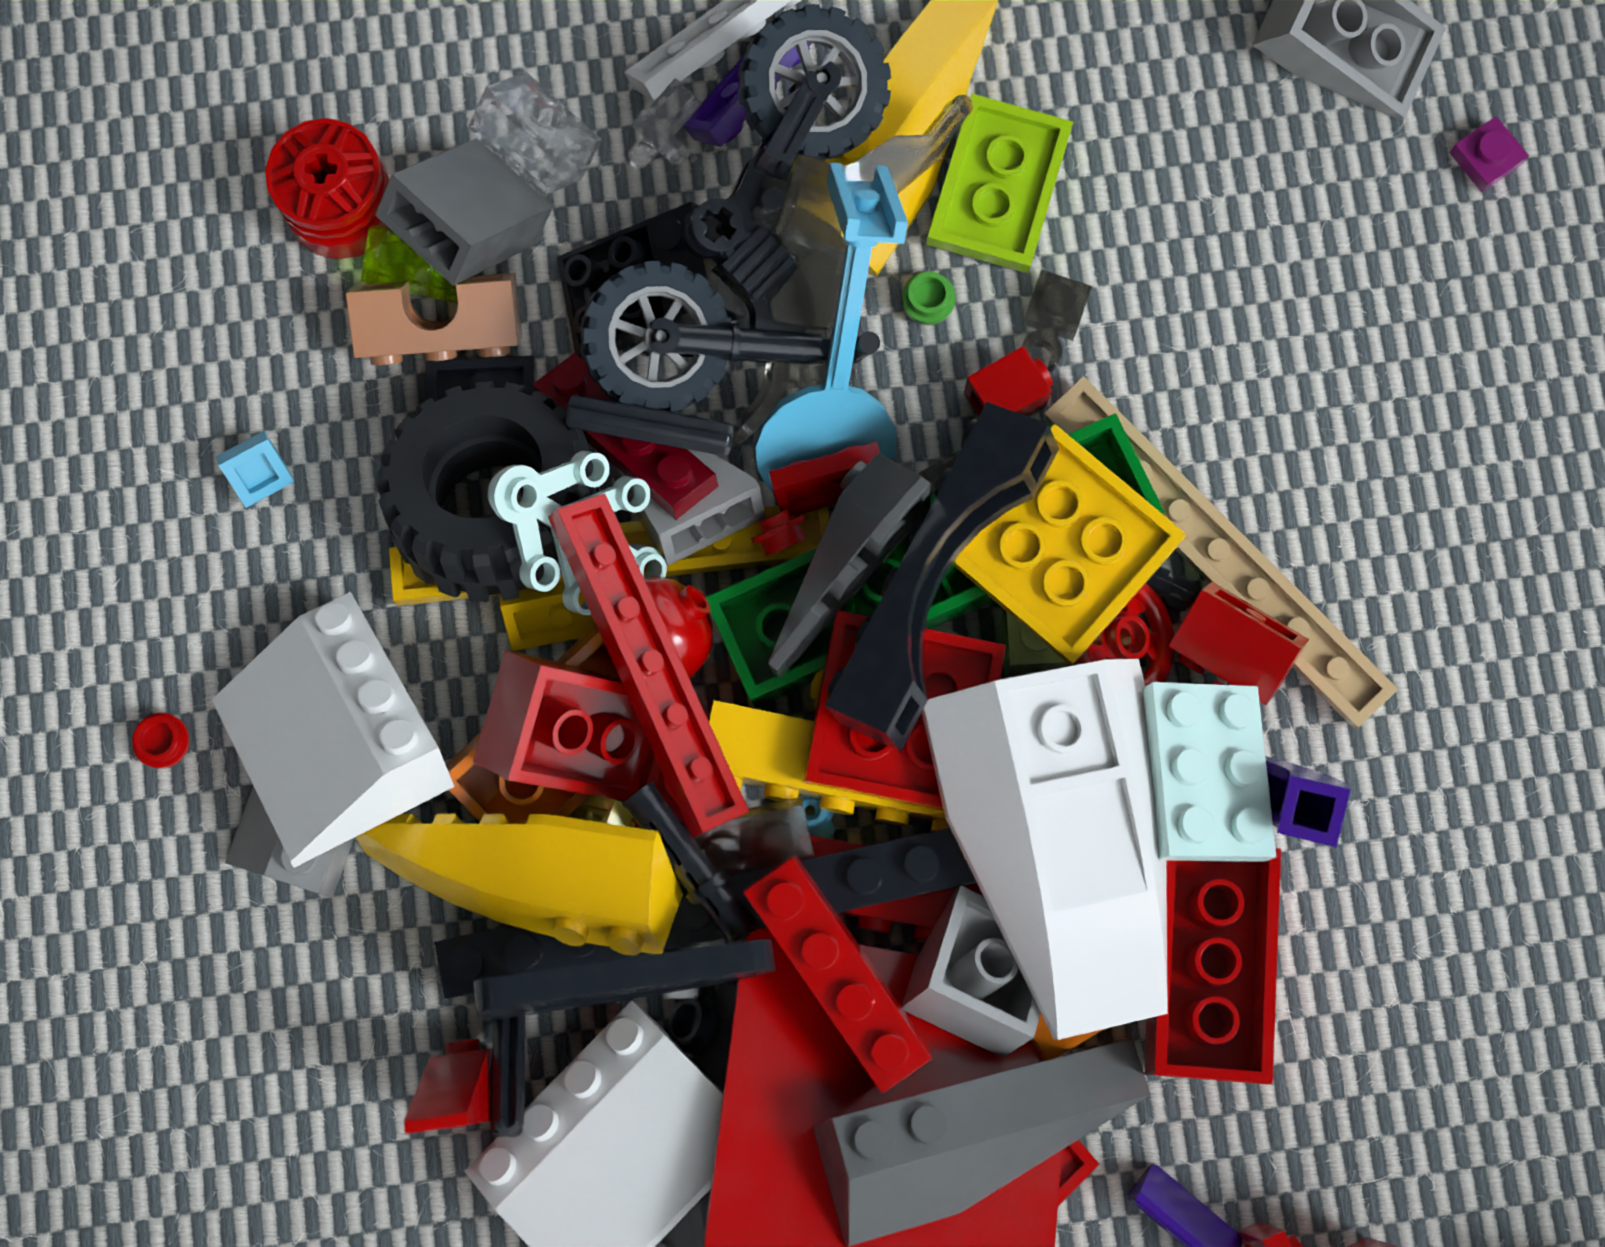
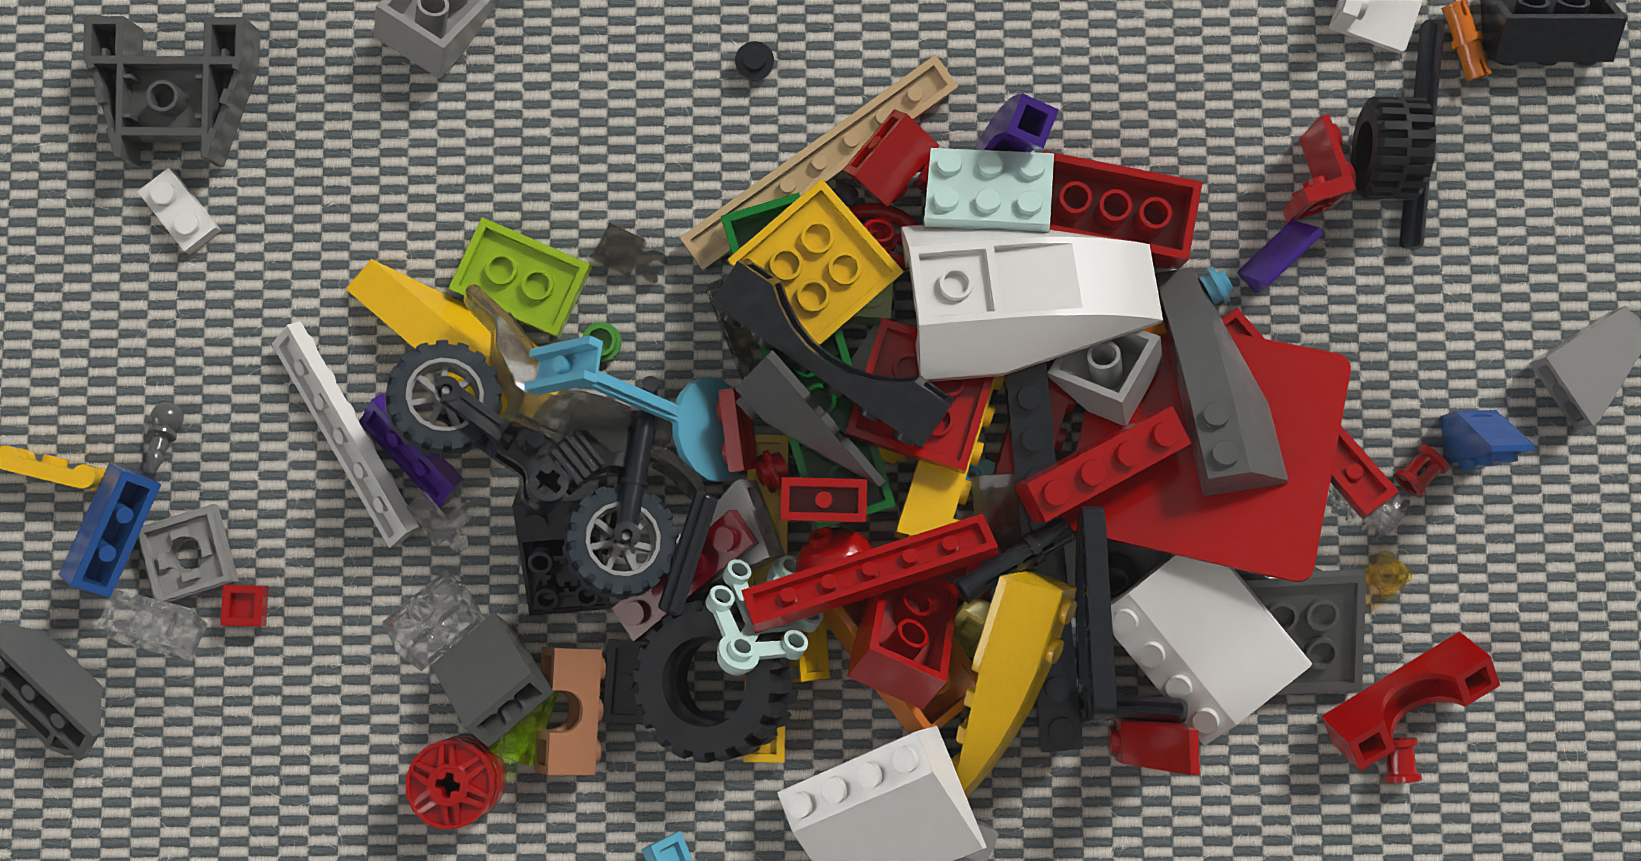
camera: 80 degrees left, 5 degrees up
(740, 591) = (823, 499): none -> red brick
(1011, 383) = (682, 292): red brick -> none
(1127, 1131) = (1217, 285): none -> medium azure plate
(1347, 447) = (754, 61): none -> black plate

